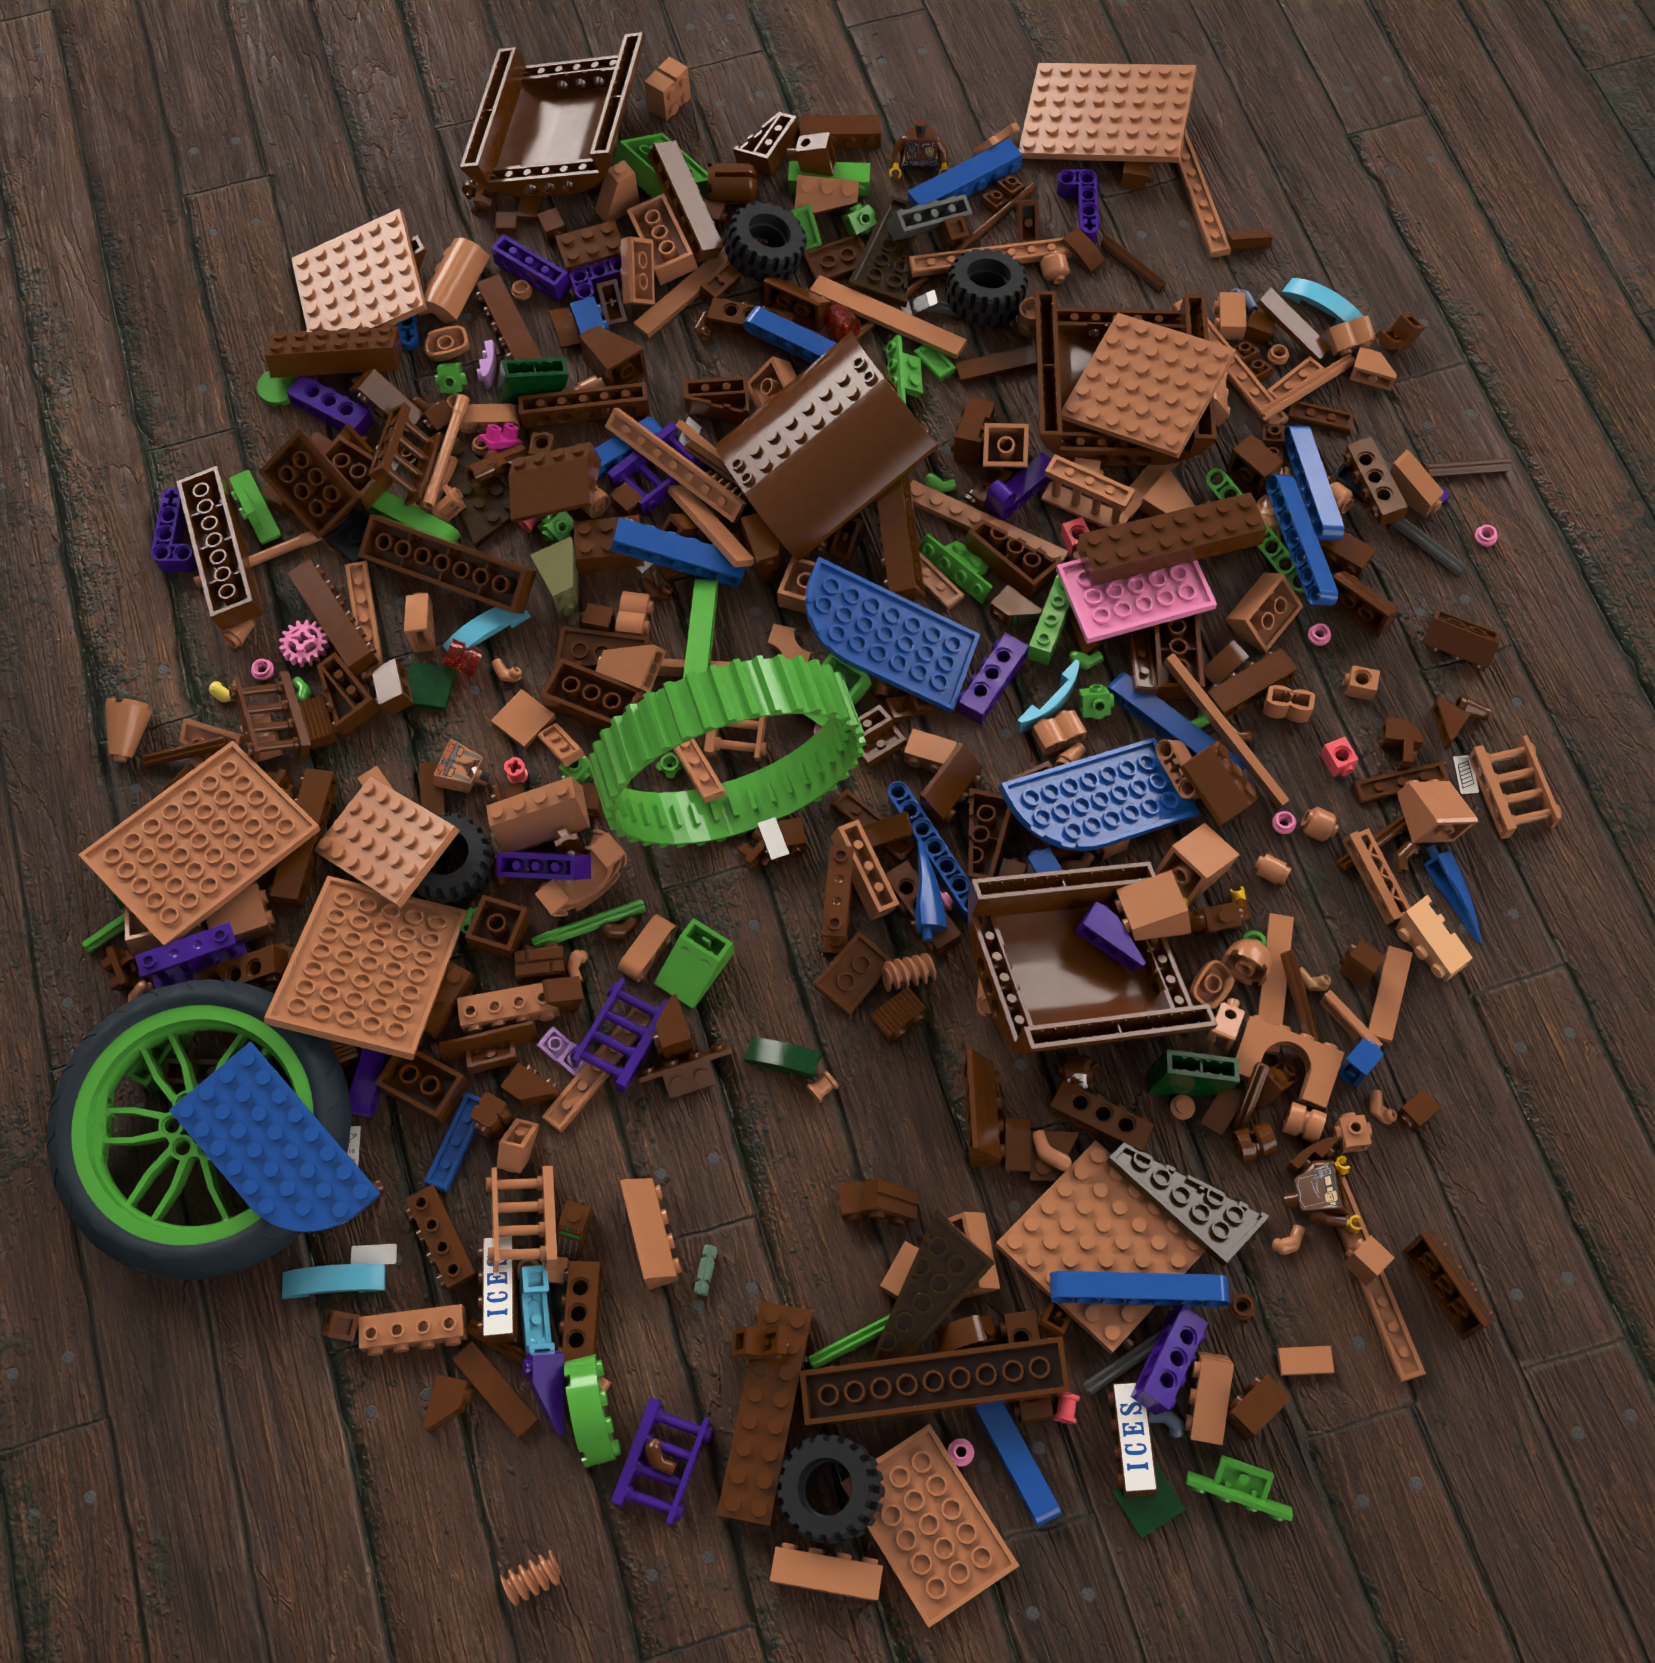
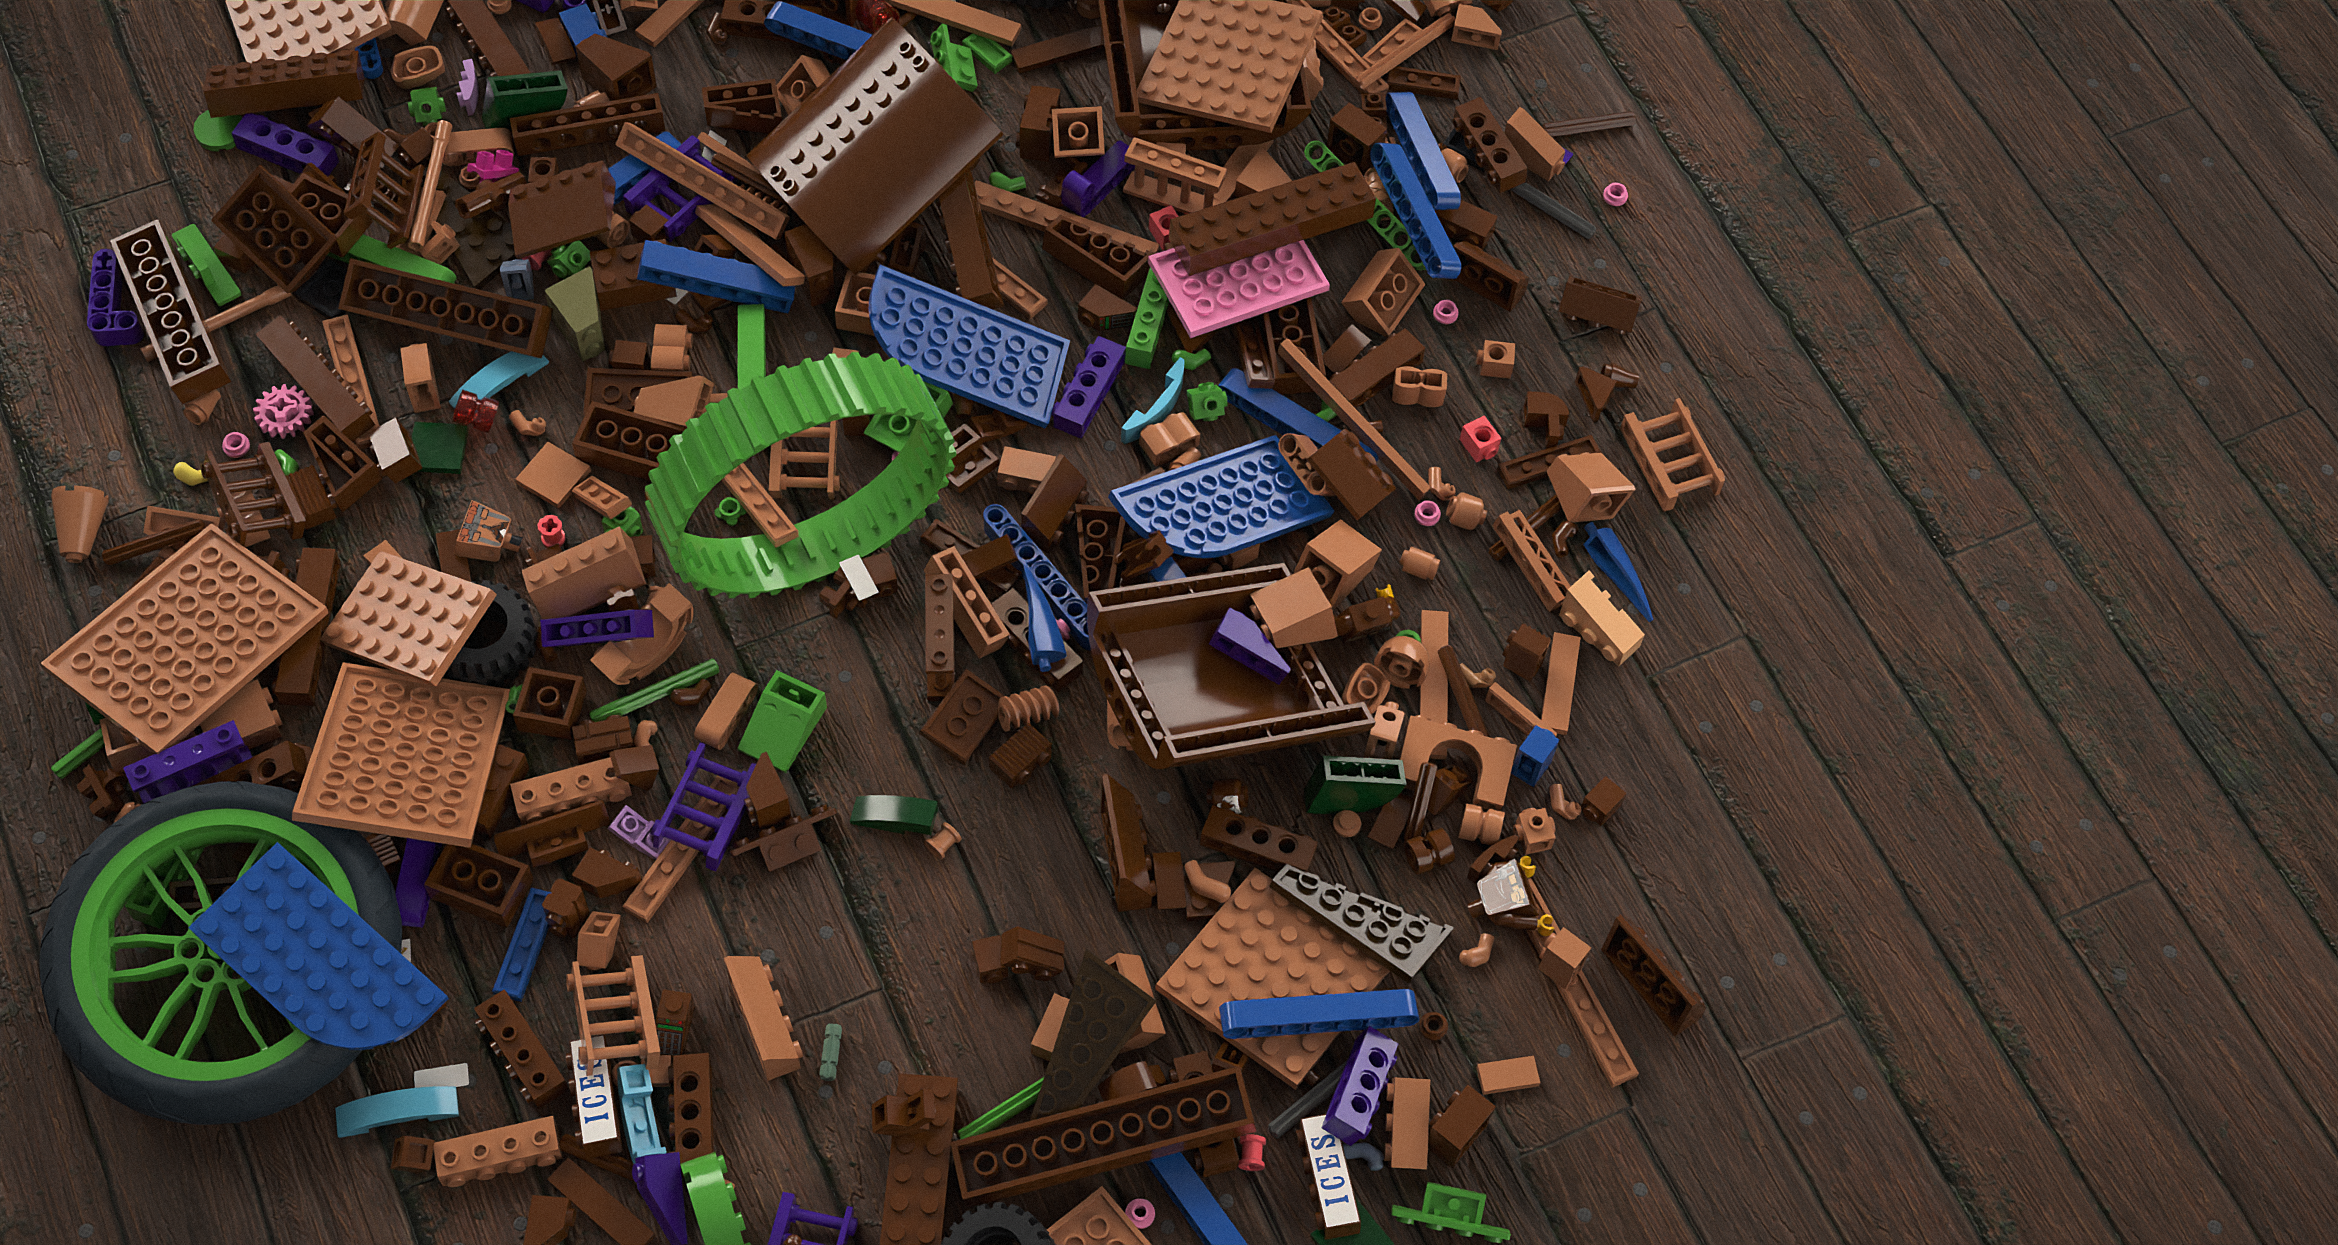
camera: 15 degrees left, 5 degrees down
(510, 540) = (517, 279): none -> sand blue slope
(958, 565) = (1038, 269): bright green bracket -> none
(1024, 843) = (1143, 555): none -> reddish brown hinge
(1298, 801) = (1439, 489): none -> nougat arm
(1465, 775) = (1619, 448): white sticker -> none

